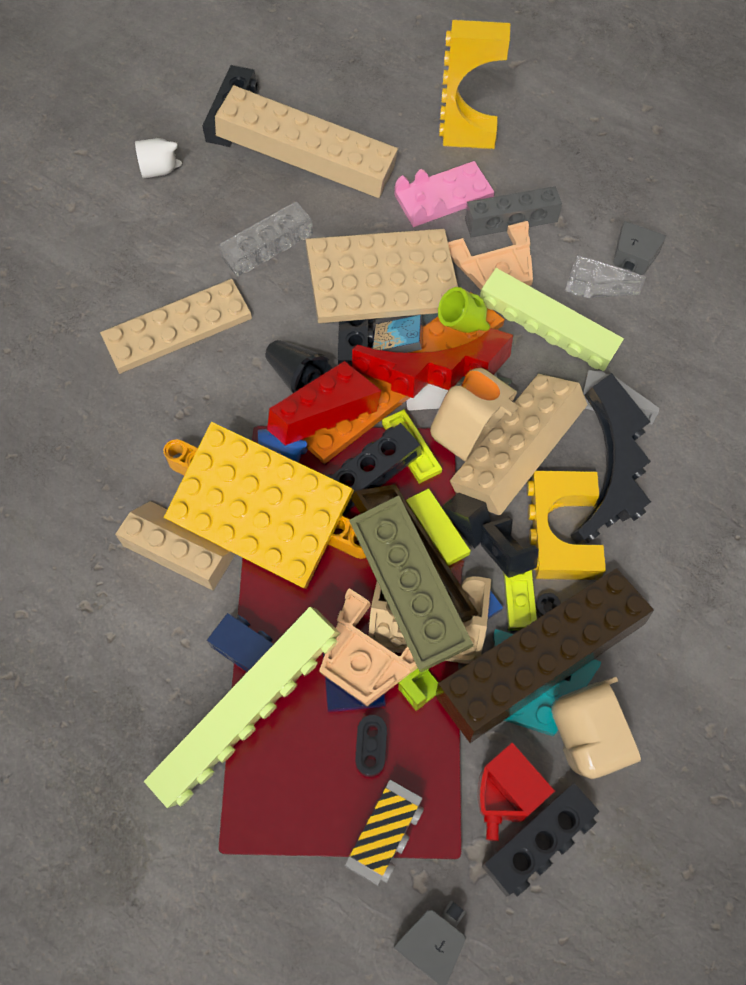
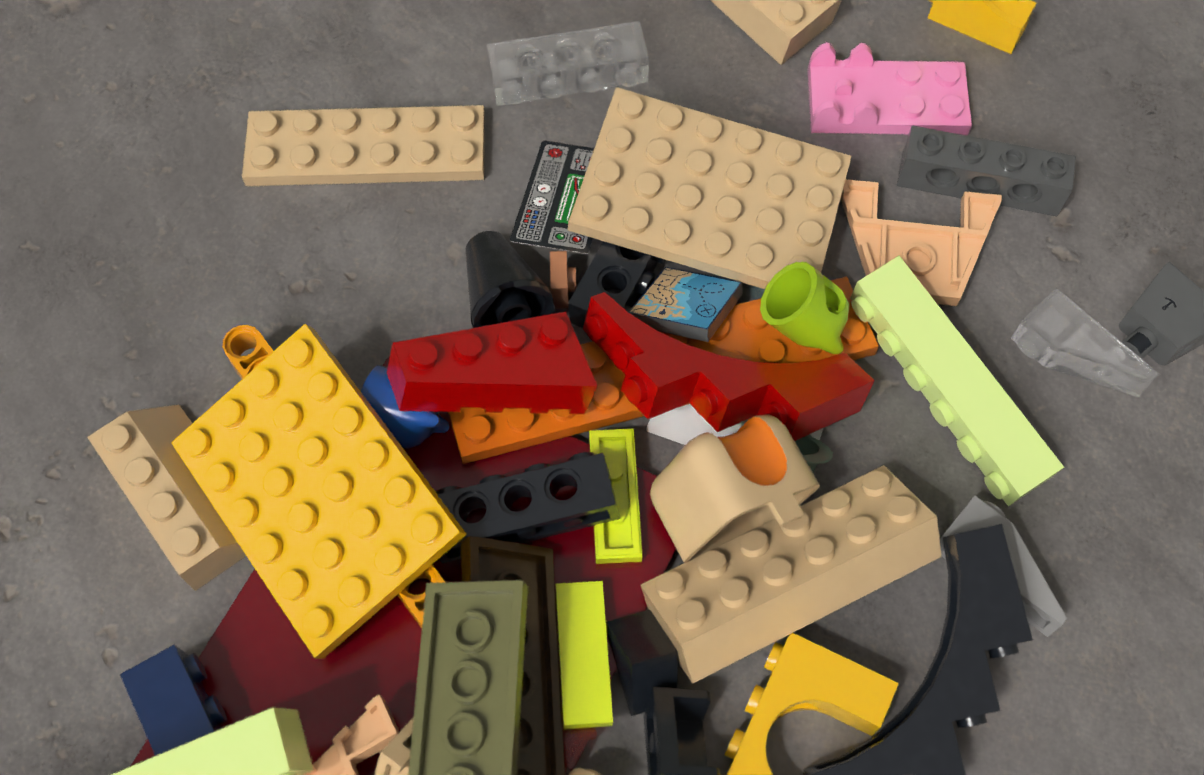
camera: 25 degrees right, 0 degrees up
(299, 310) = (551, 198): none -> sticker
(325, 348) = (561, 279): none -> nougat plate

